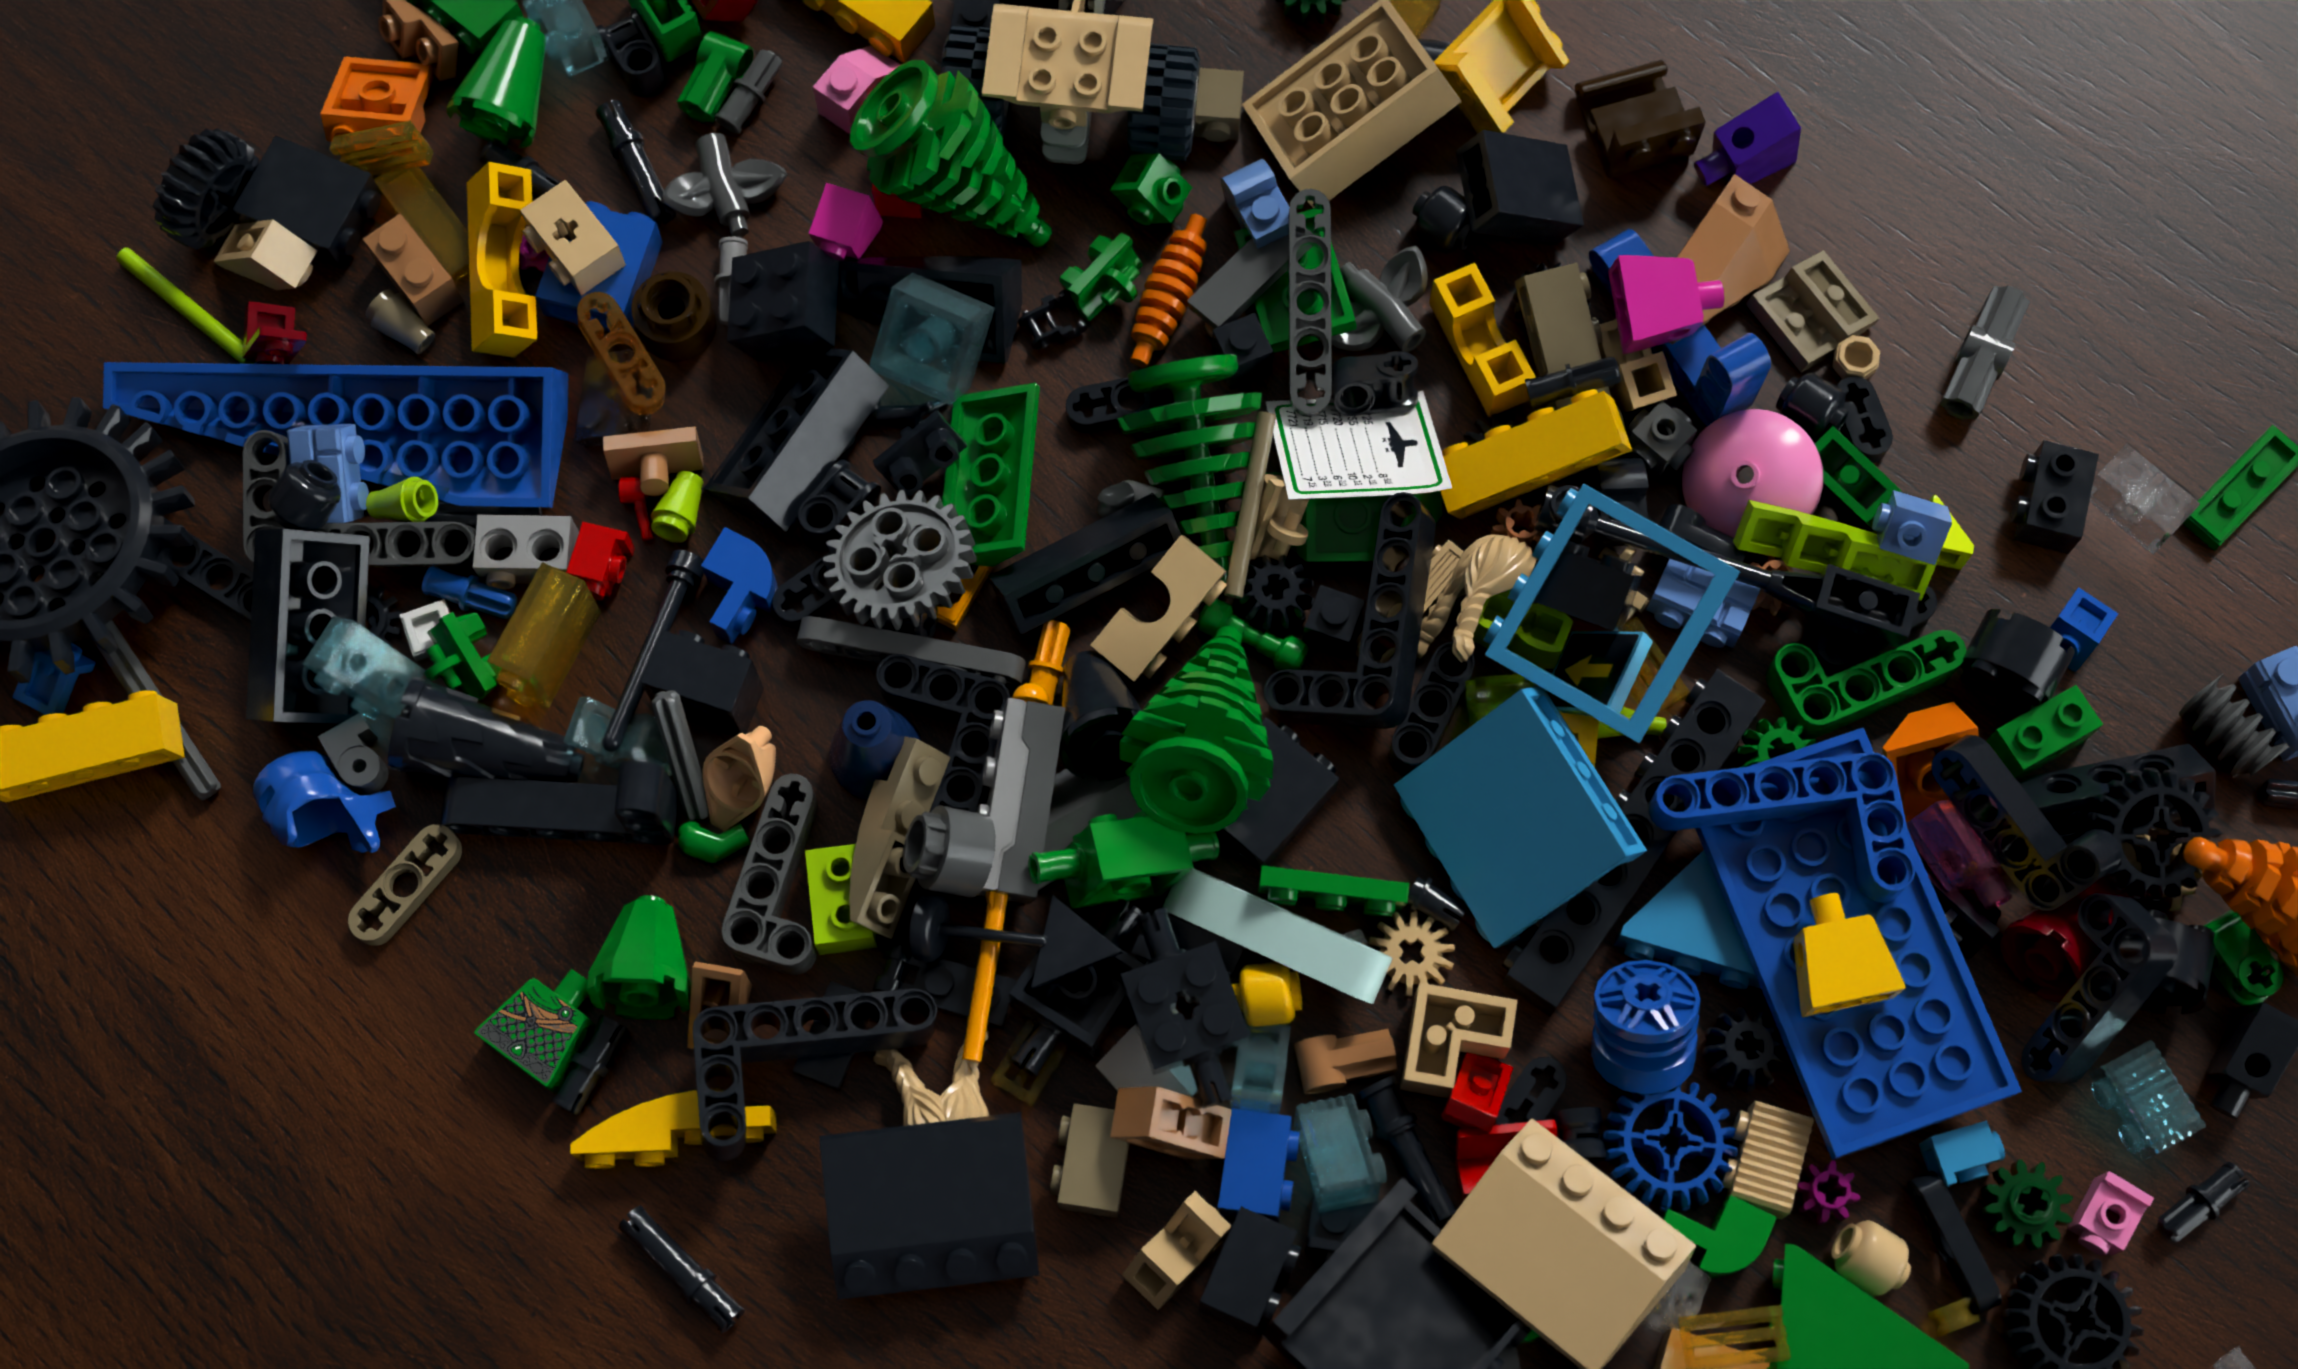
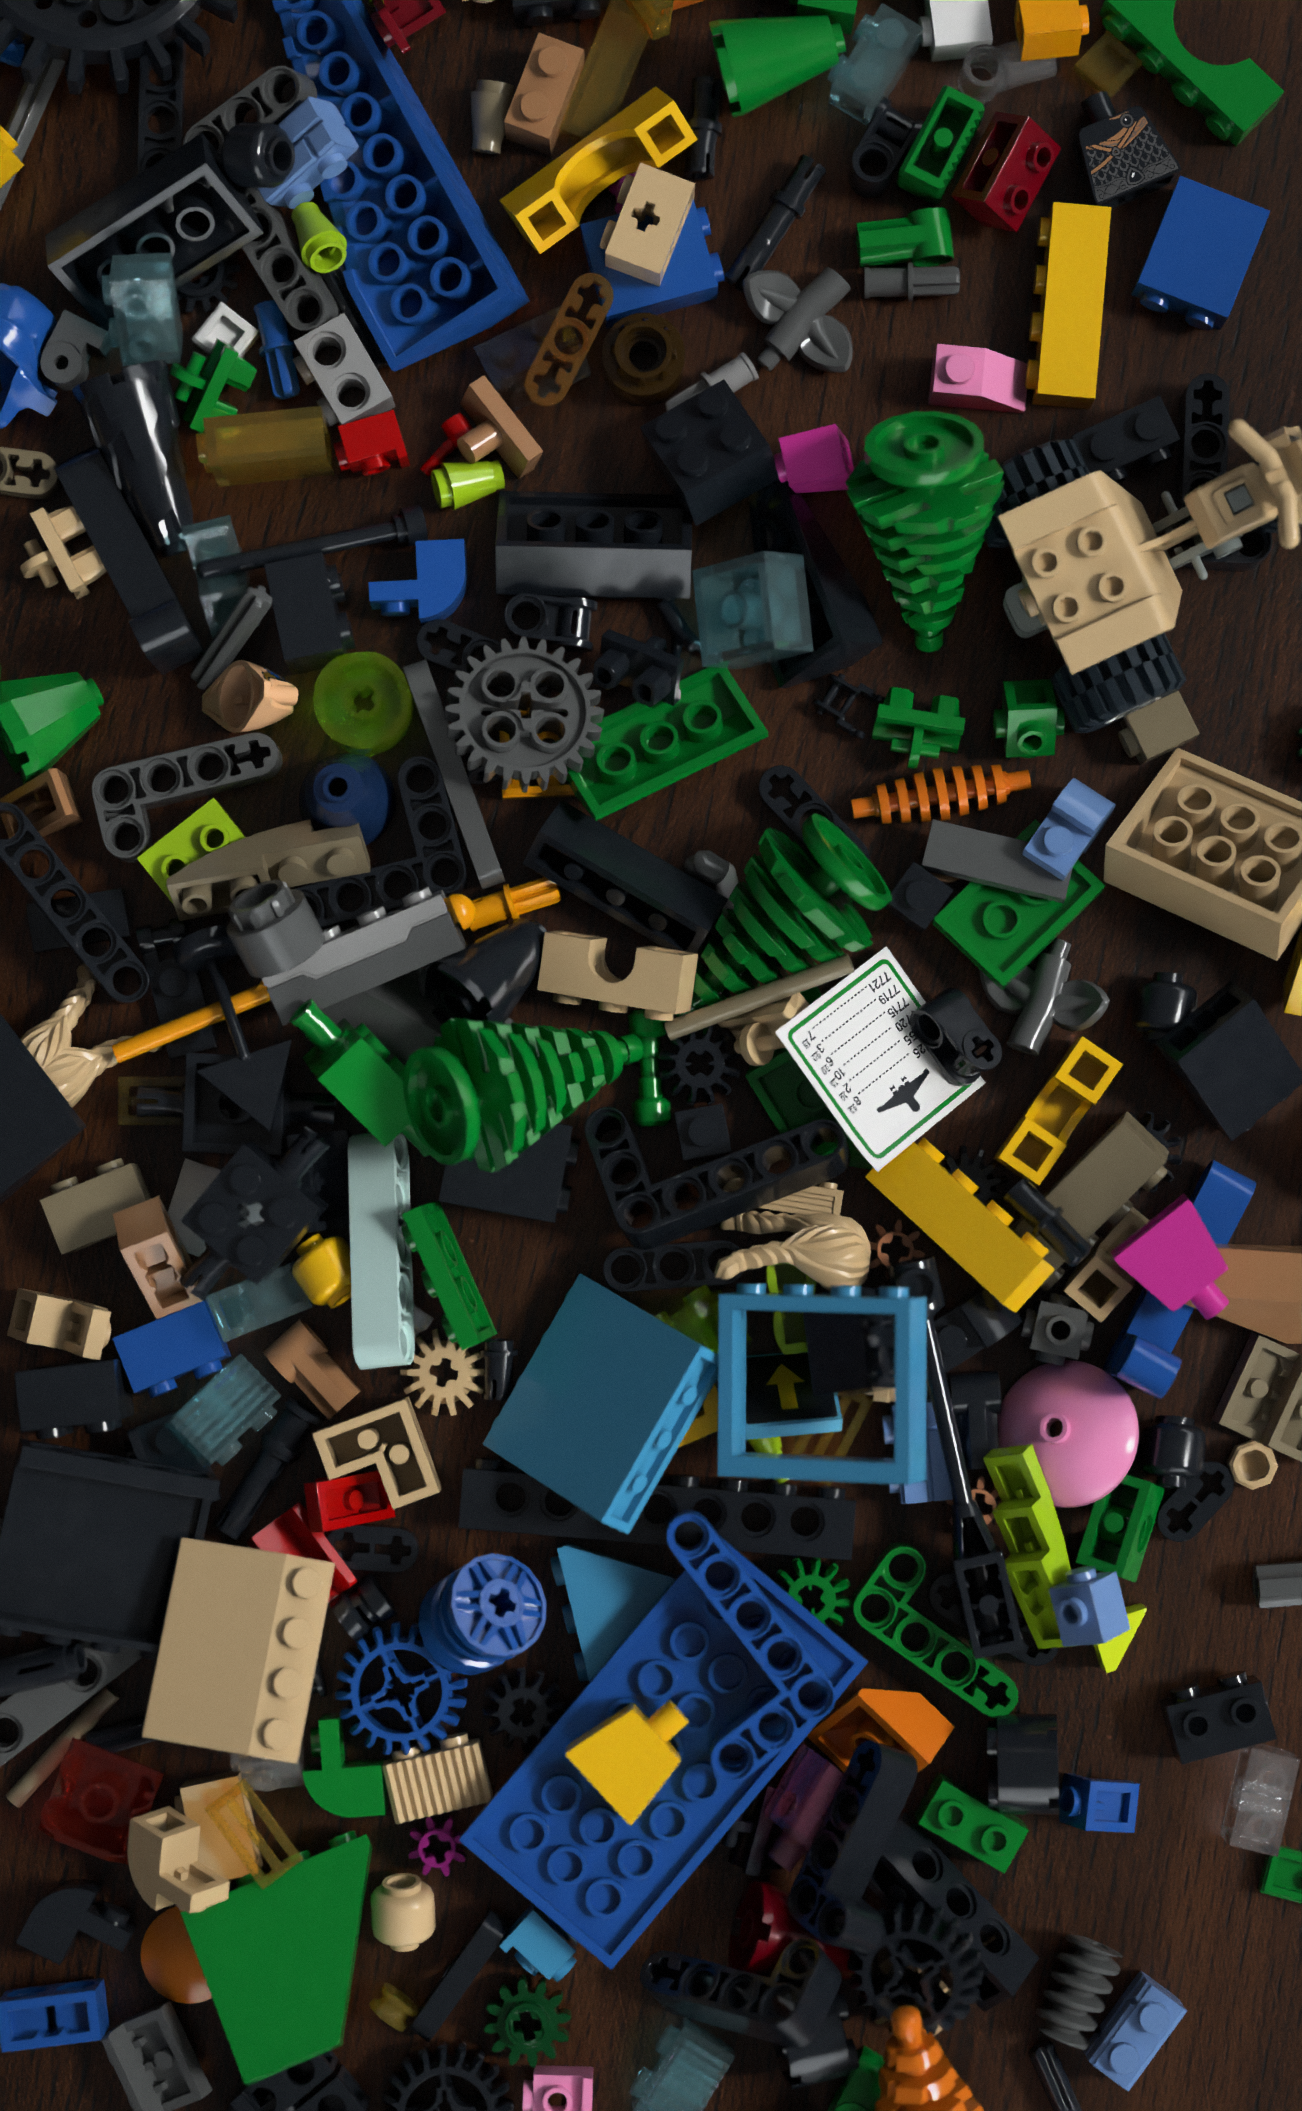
camera: 55 degrees right, 15 degrees up
(496, 859) = (76, 569): none -> tan hips
(708, 845) = (177, 710): green arm -> none
(800, 659) = (363, 675): none -> clear neon green brick
(1314, 280) = (968, 945): dark grey beam -> none

